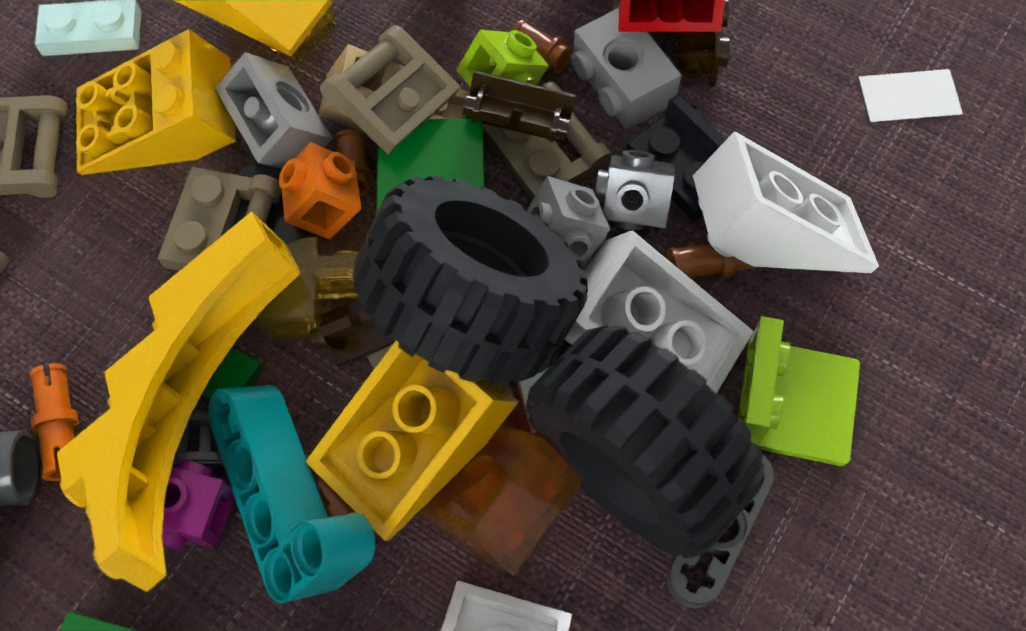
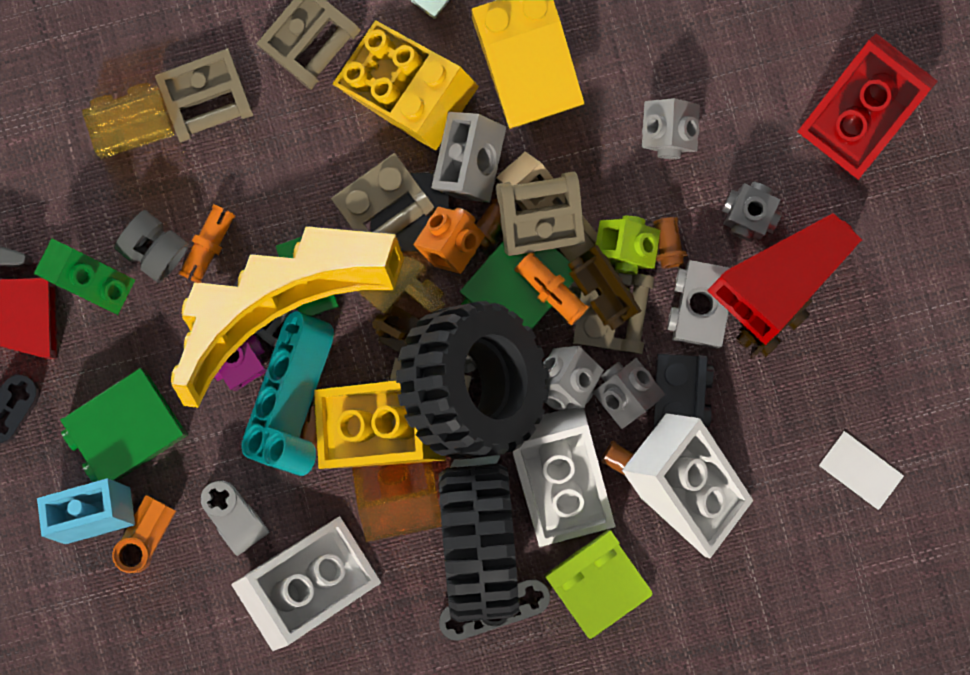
camera: 40 degrees right, 20 degrees up
(431, 145) = (551, 288): none -> orange pin

